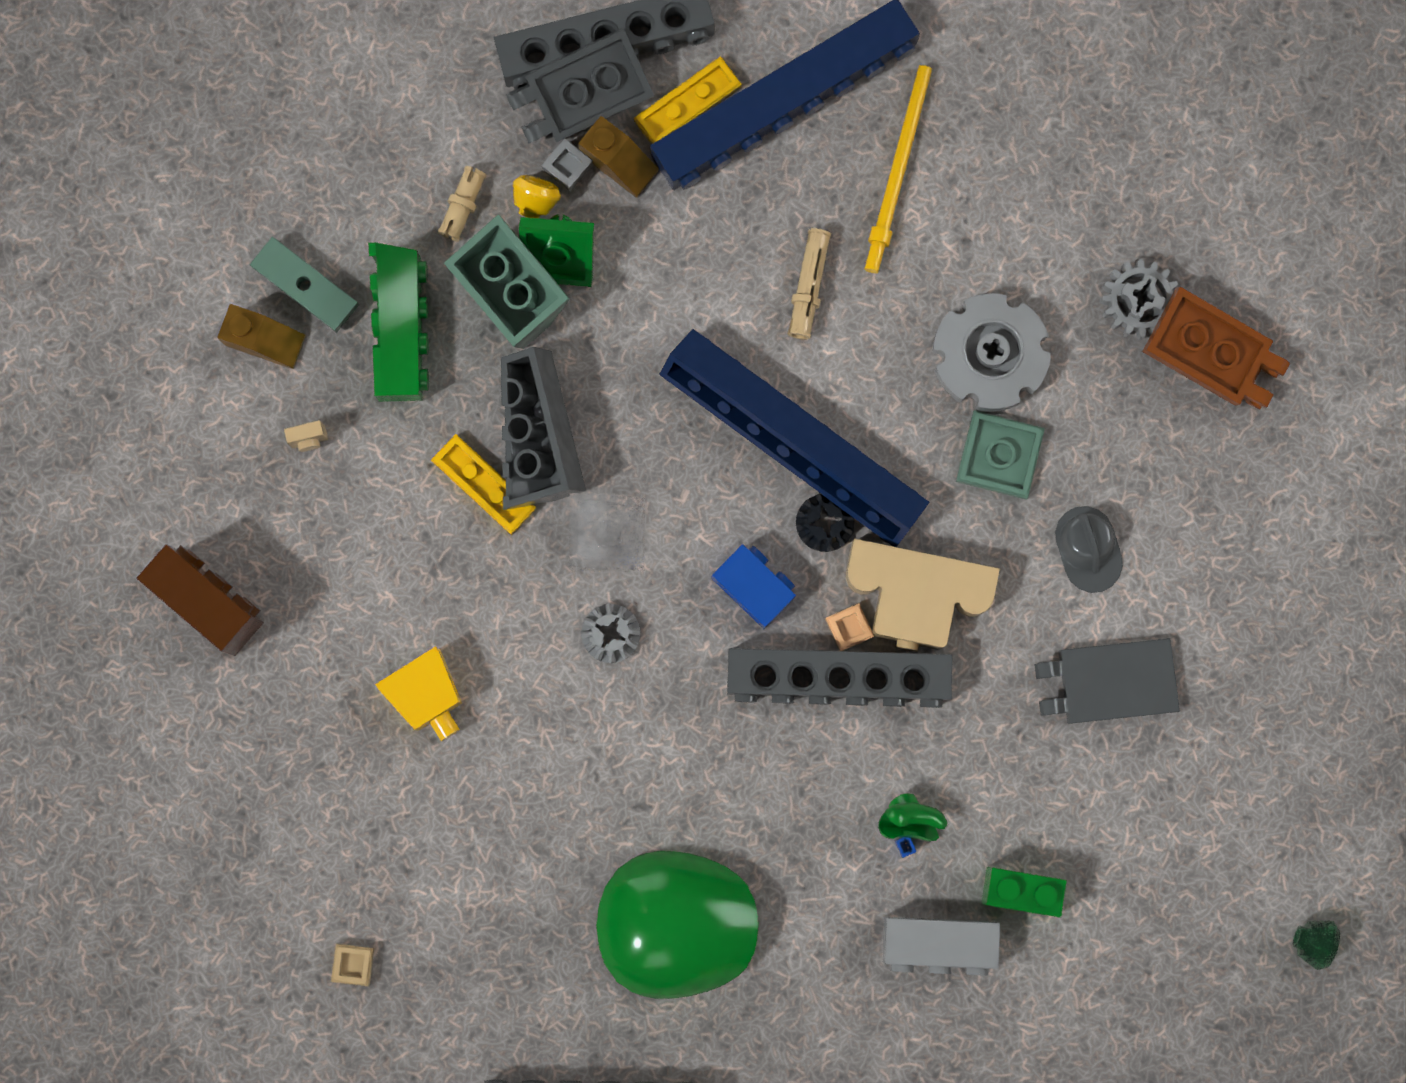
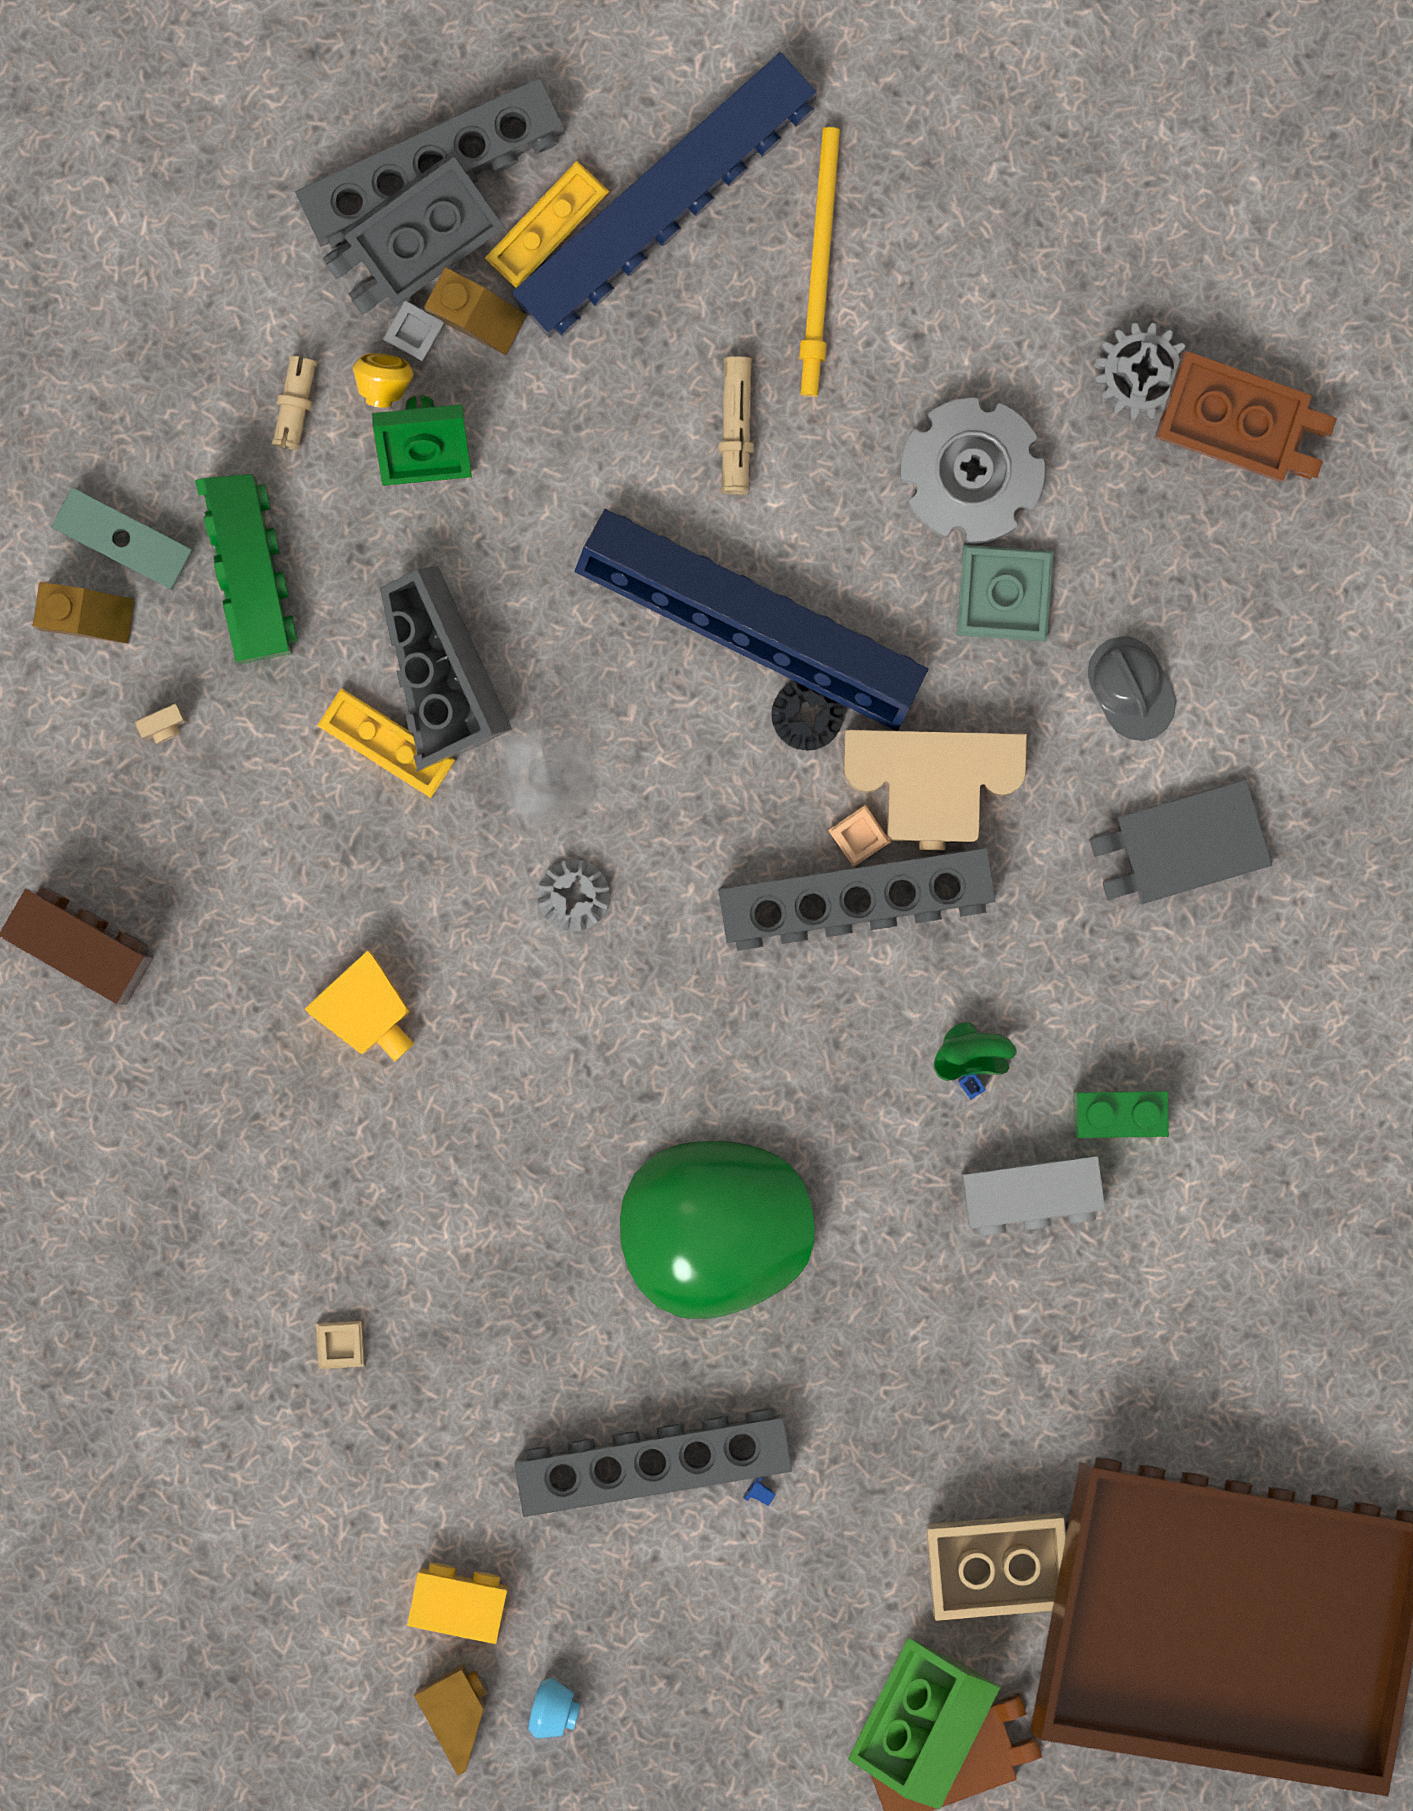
camera: 10 degrees left, 5 degrees up
(508, 283) = (370, 494): sand green slope -> none
(754, 585) = (736, 807): blue brick -> none

